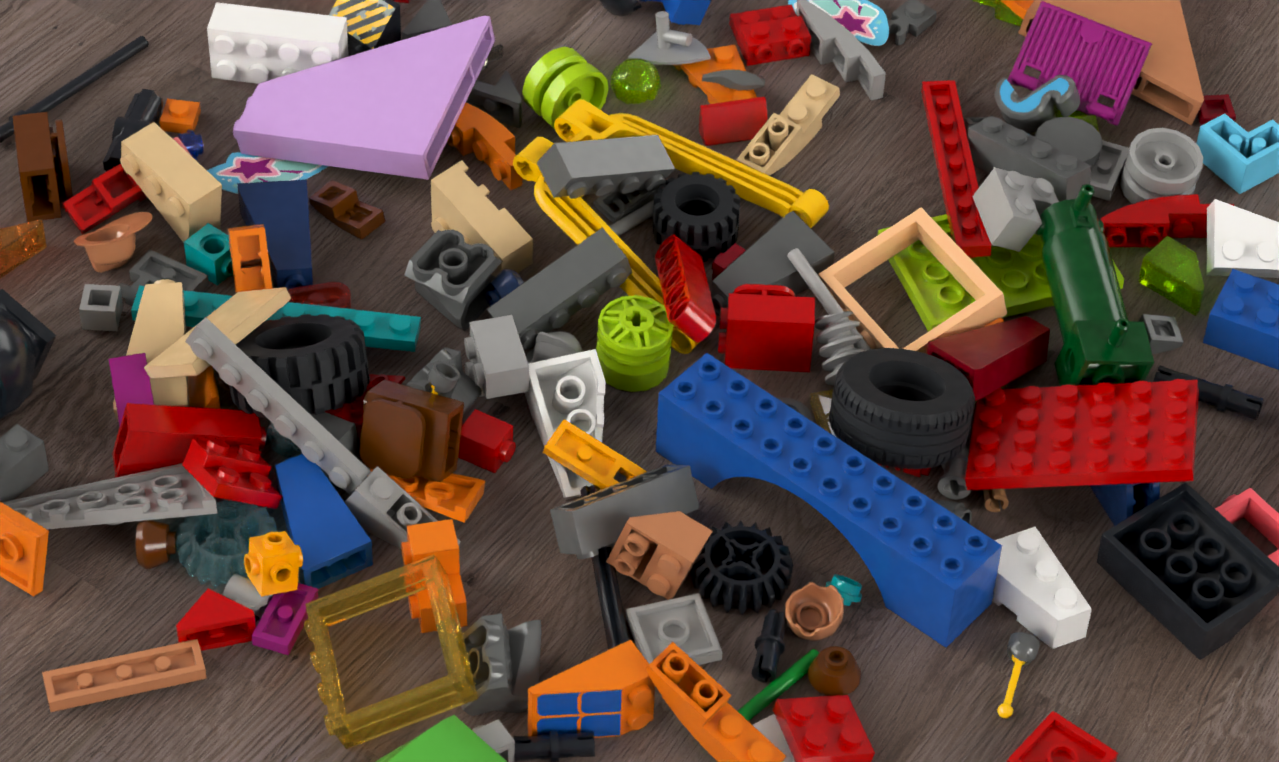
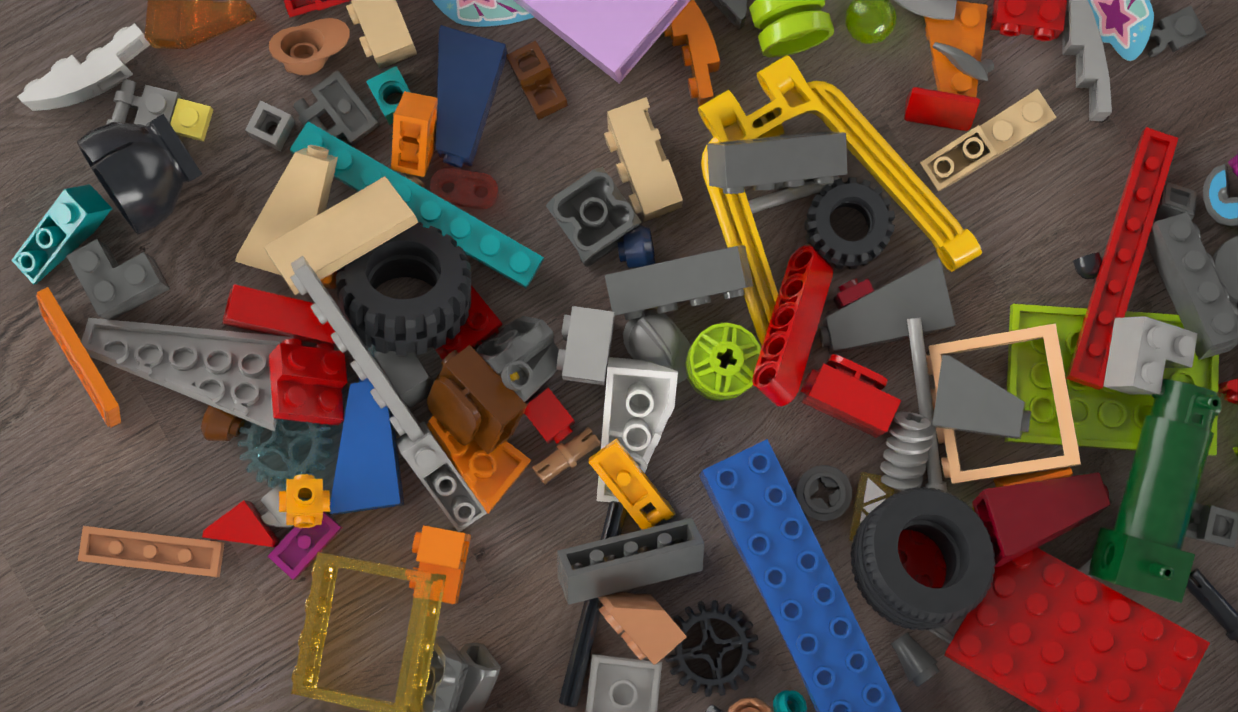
camera: 25 degrees right, 35 degrees up
(130, 381) = (251, 261): magenta tile -> none
(517, 468) = (566, 455): none -> medium nougat pin
(886, 284) = (976, 404): none -> dark grey slope
(928, 187) = (1088, 265): none -> black hinge

